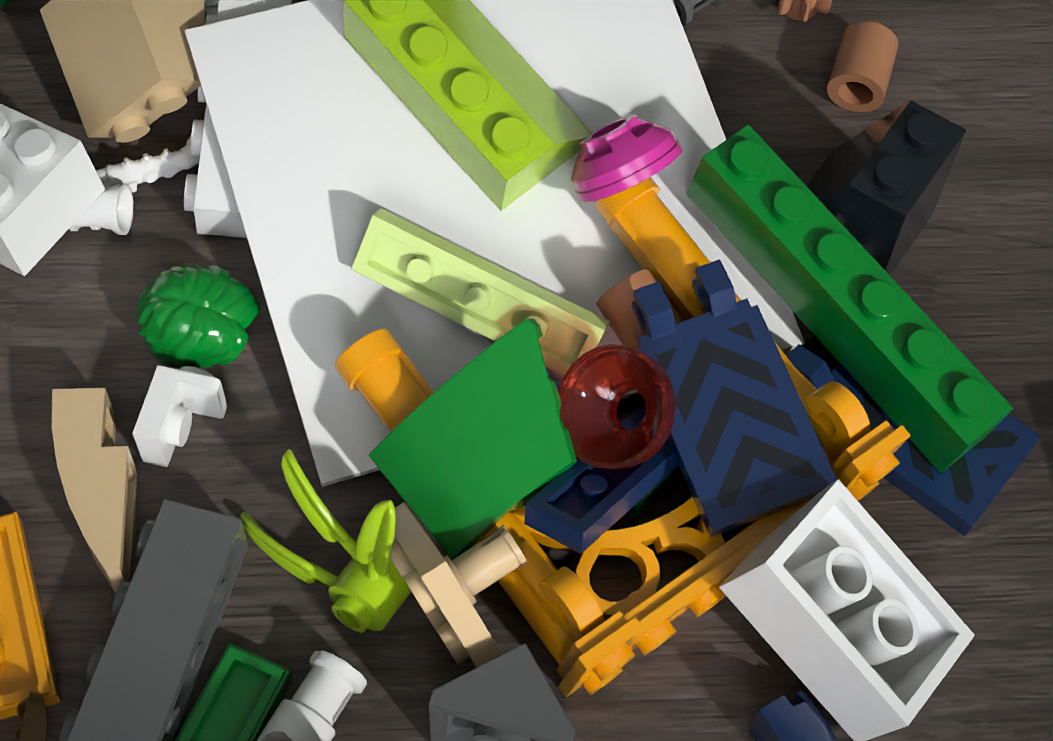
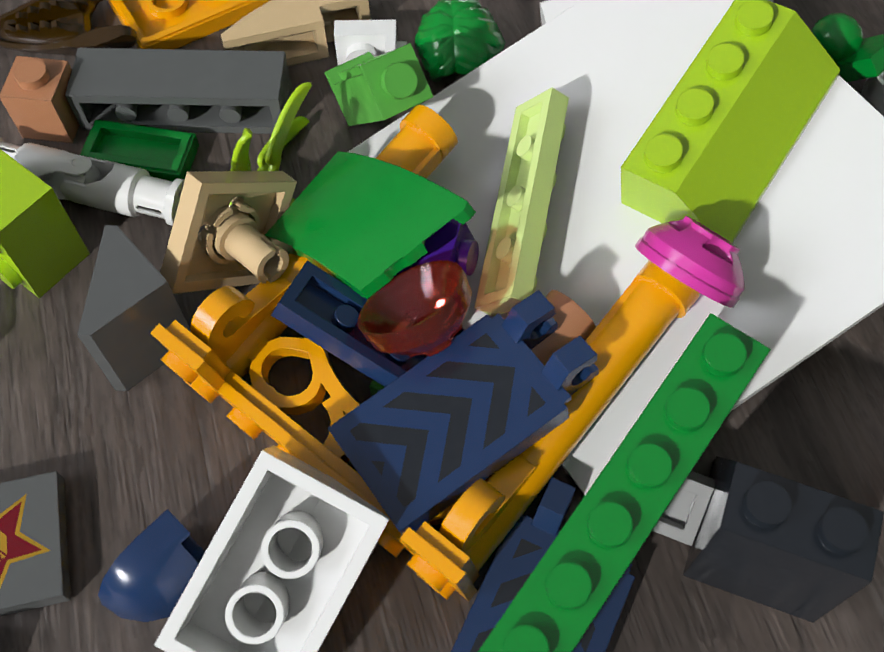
camera: 80 degrees right, 0 degrees up
(272, 402) = (378, 86): none -> bright green window

